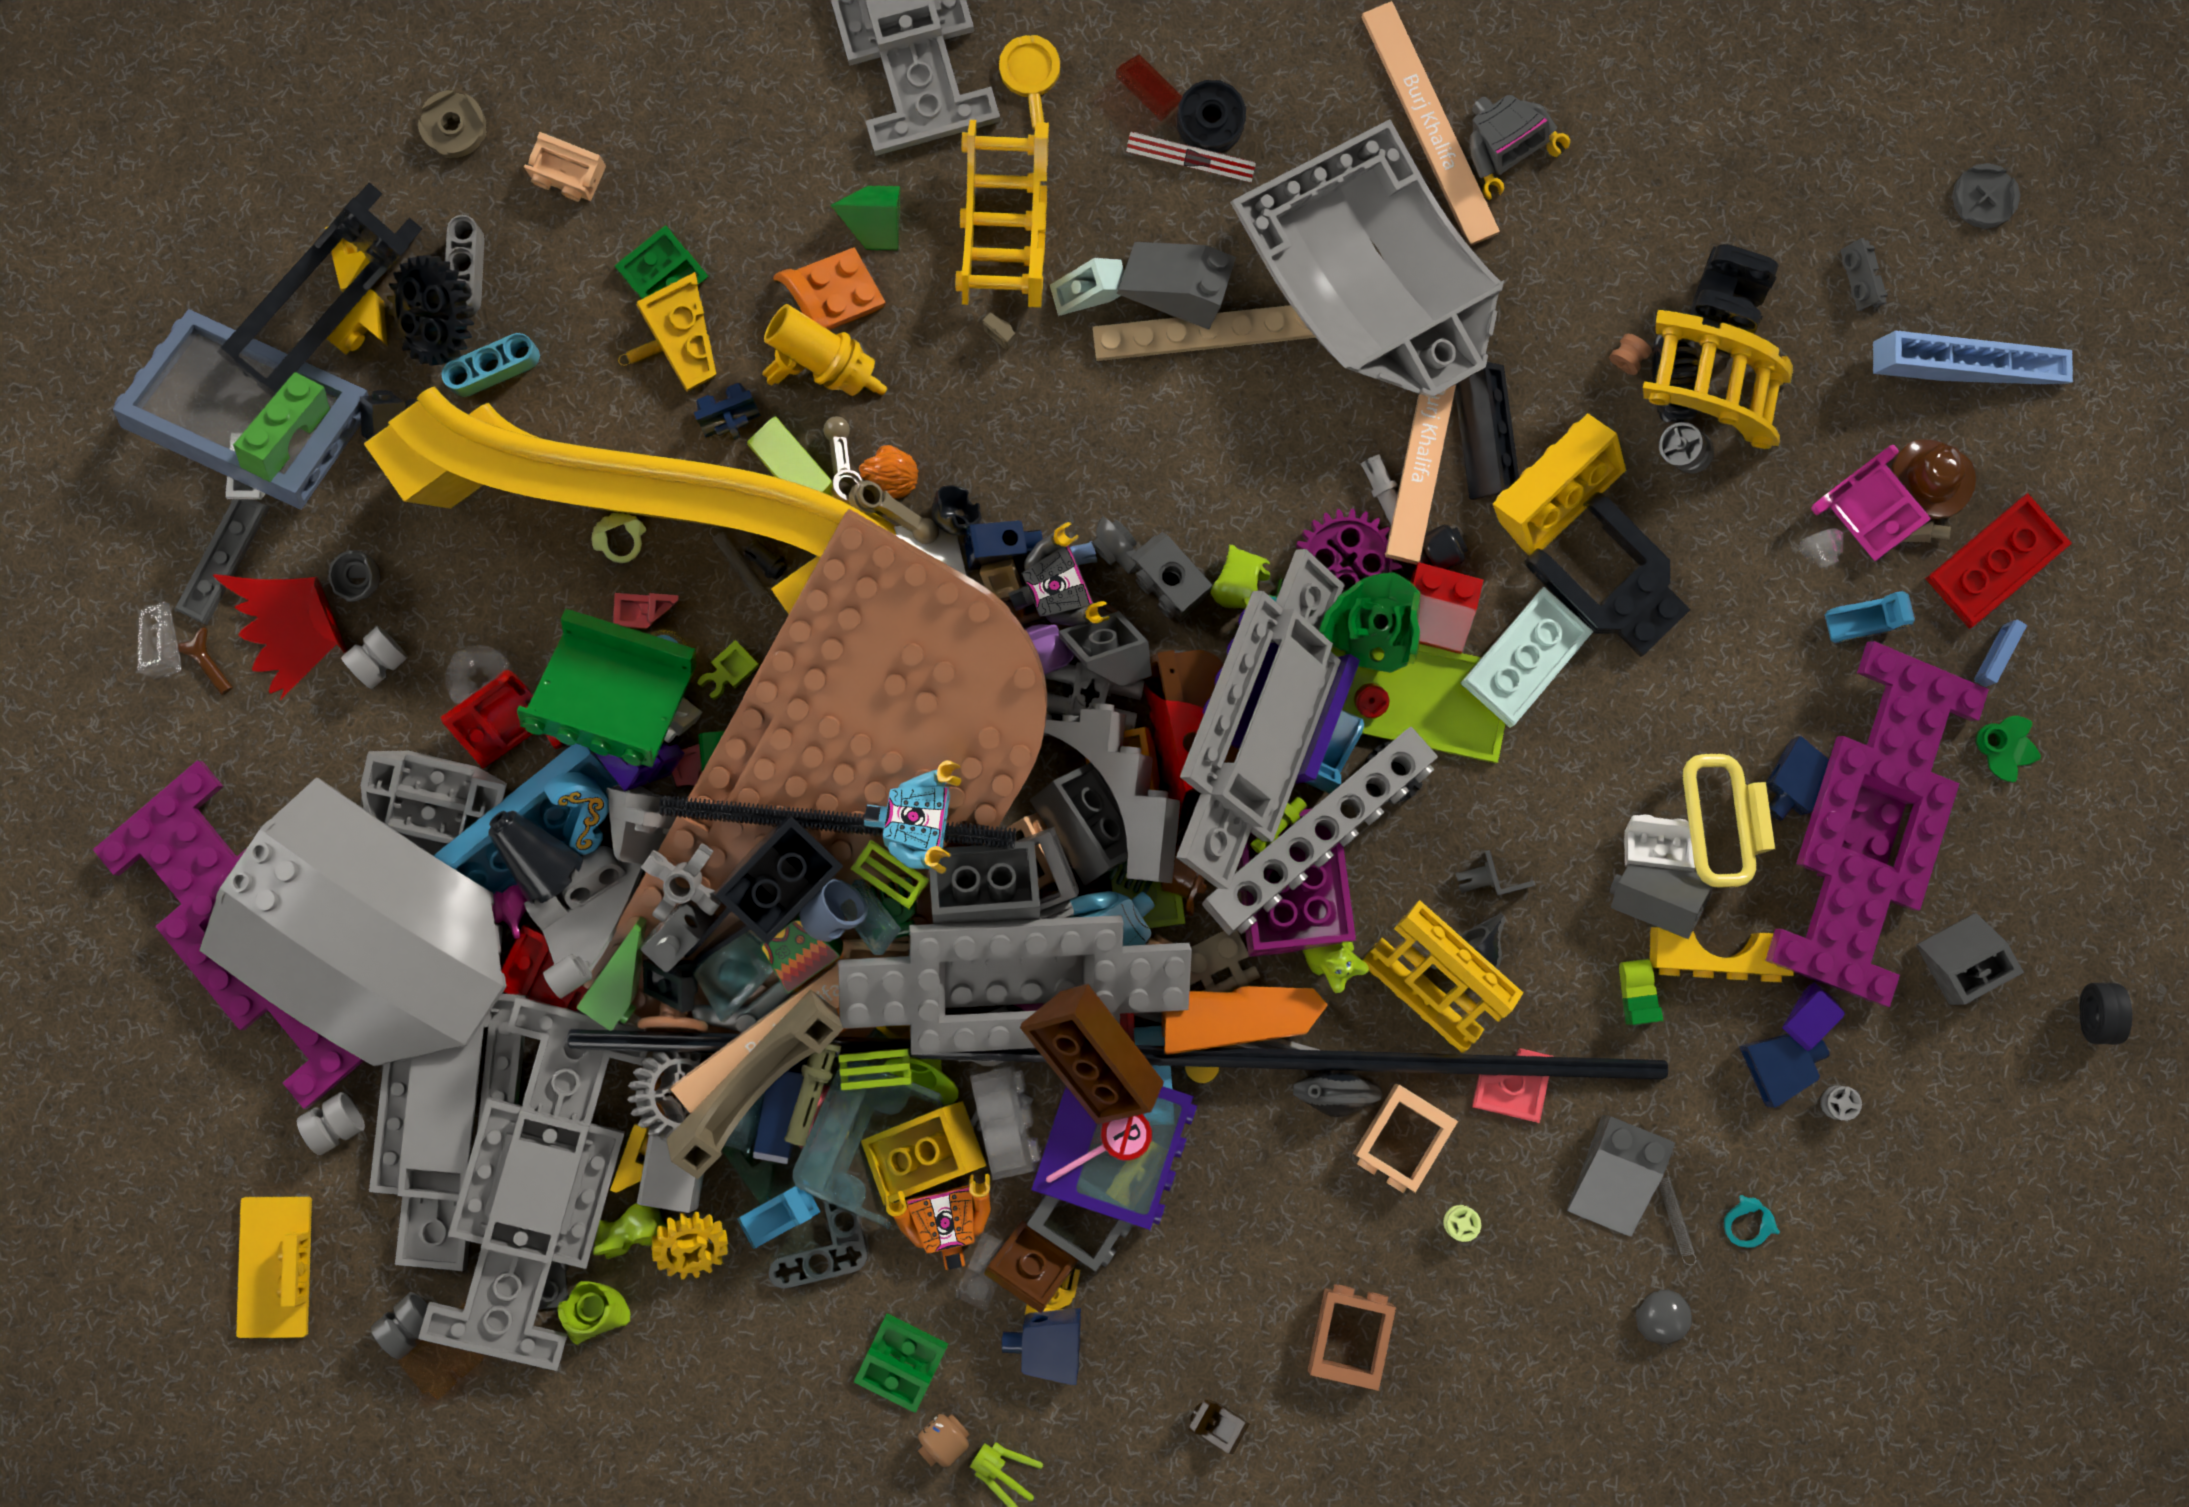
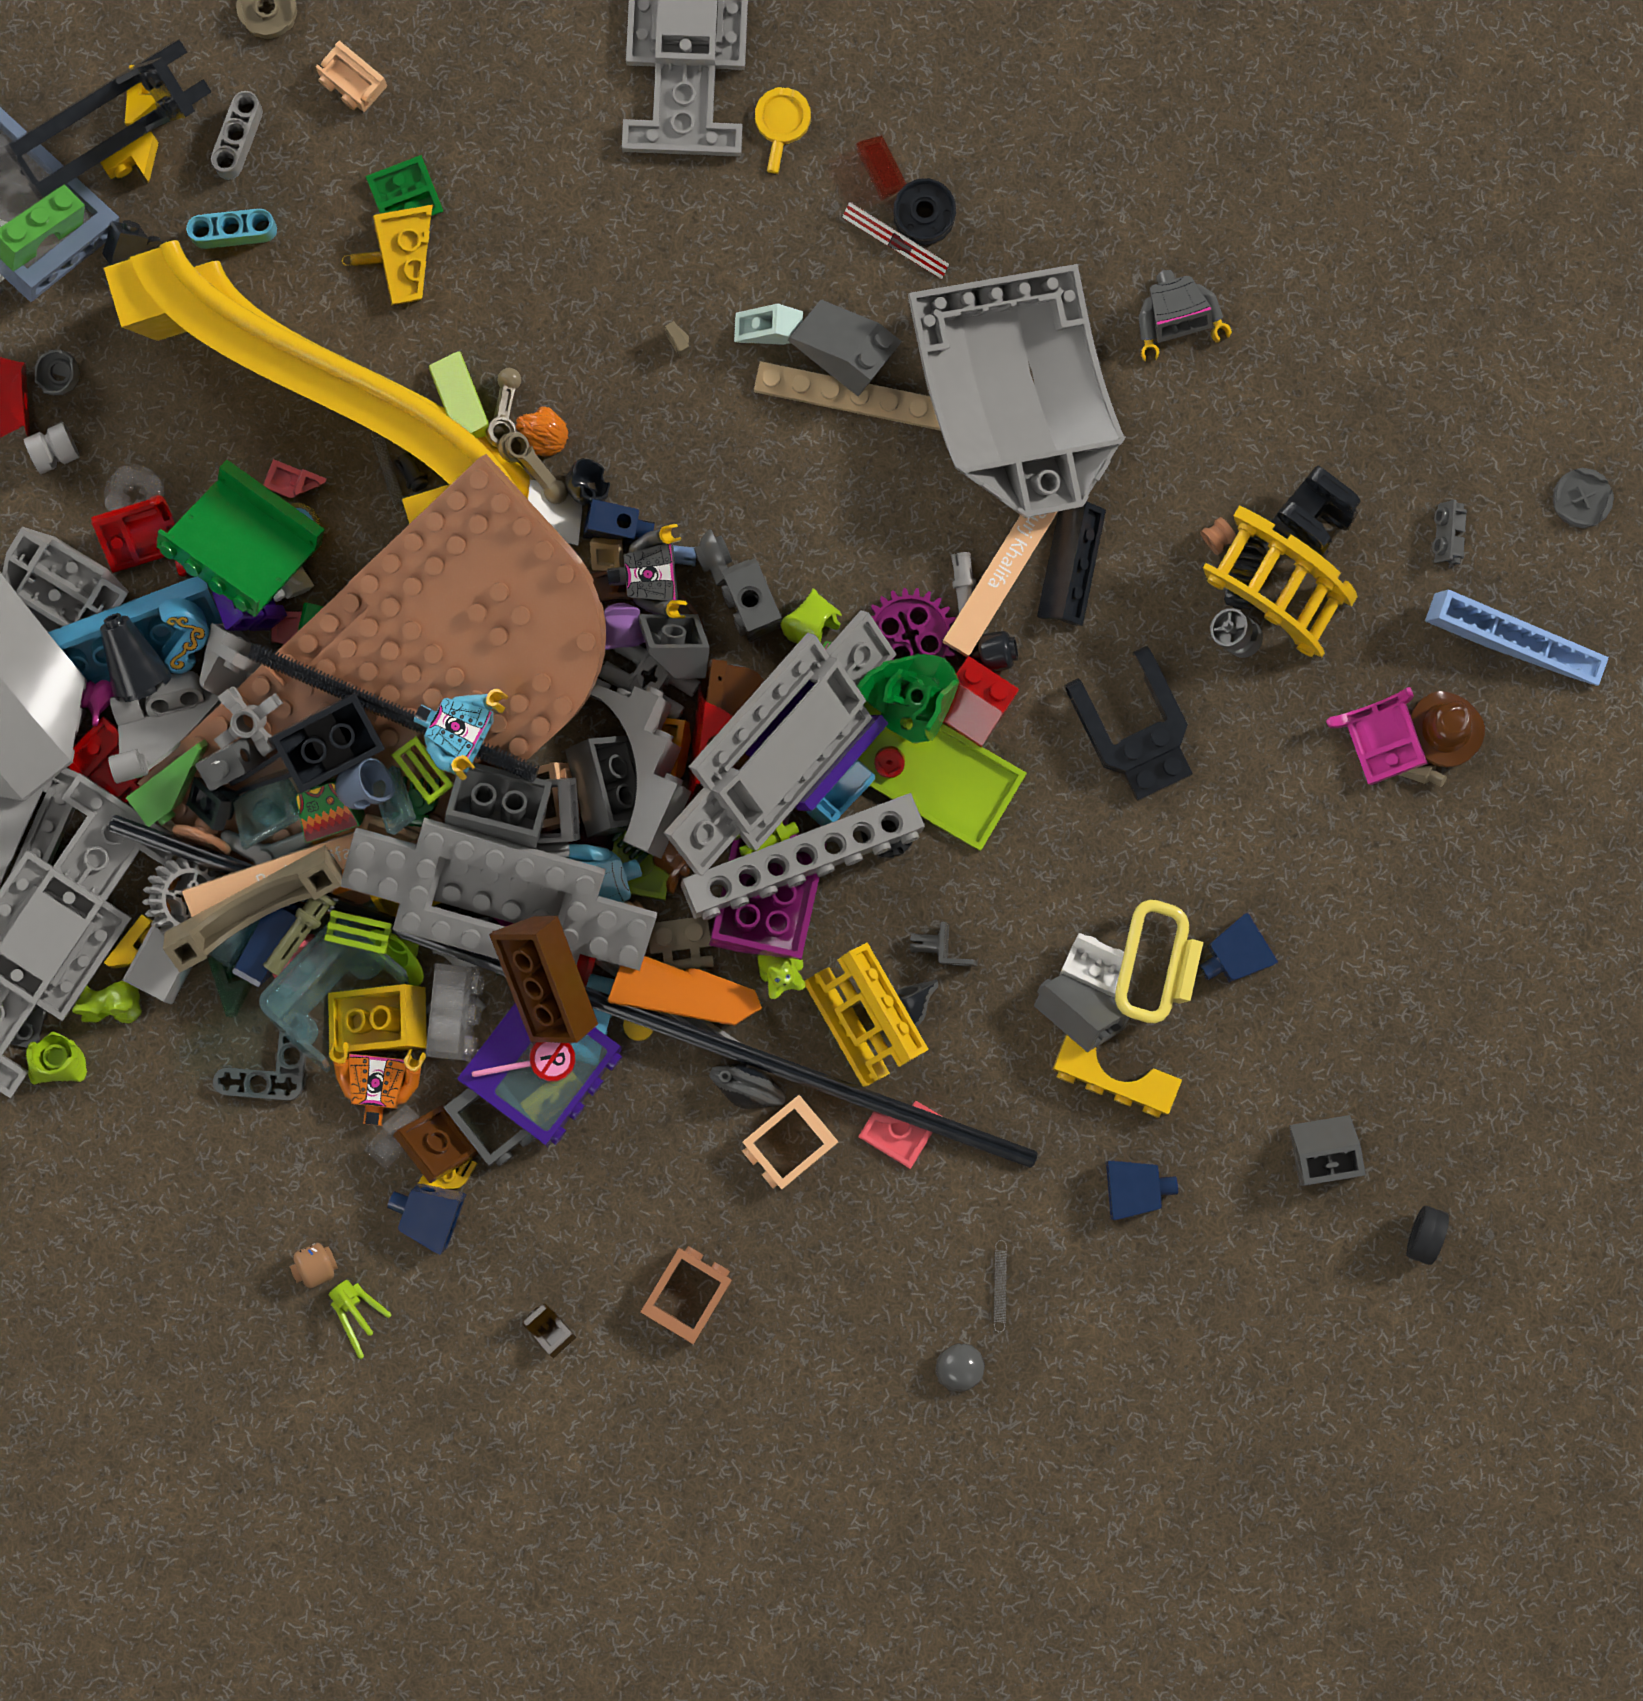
camera: 20 degrees right, 0 degrees up
(435, 288) = (206, 151): black gear -> none
(632, 525) = (307, 406): yellowish green piece -> none
(689, 1245) = (155, 1030): yellow gear -> none
(727, 414) = (421, 336): dark blue hips -> none
(732, 666) = (352, 555): lime plate -> none
(777, 1216) = (237, 1030): dark azure arch -> none
(832, 358) = (524, 317): yellow piece -> none
(833, 289) = (544, 261): orange piece -> none
(872, 216) = (602, 203): green slope -> none
(894, 1377) = (290, 1200): green slope -> none
(1032, 221) = (740, 252): yellow fence -> none
(1430, 124) = (1115, 278): light nougat tile -> none
(1468, 1225) = (814, 1230): yellowish green wheel -> none
(1526, 657) = (1036, 768): light aqua plate -> none
(1560, 483) = (1116, 627): yellow slope -> none
(1620, 1175) = (962, 1235): dark grey slope -> none
(1639, 992) = (1034, 1086): leg -> none
(1745, 1206) = (1073, 1322): teal piece -> none
(1812, 1017) = (1173, 1154): dark purple slope -> none
(1823, 547) = (1327, 758): clear cone -> none
(1848, 1104) = (1179, 1239): light grey wheel -> none
(1860, 817) = (1276, 1001): magenta piece -> none
(1870, 618) = (1344, 831): dark azure animal -> none
(1998, 560) = (1478, 819): red plate -> none
(2000, 653) = (1449, 898): medium blue tile -> none
(2012, 746) = (1433, 985): green plate -> none

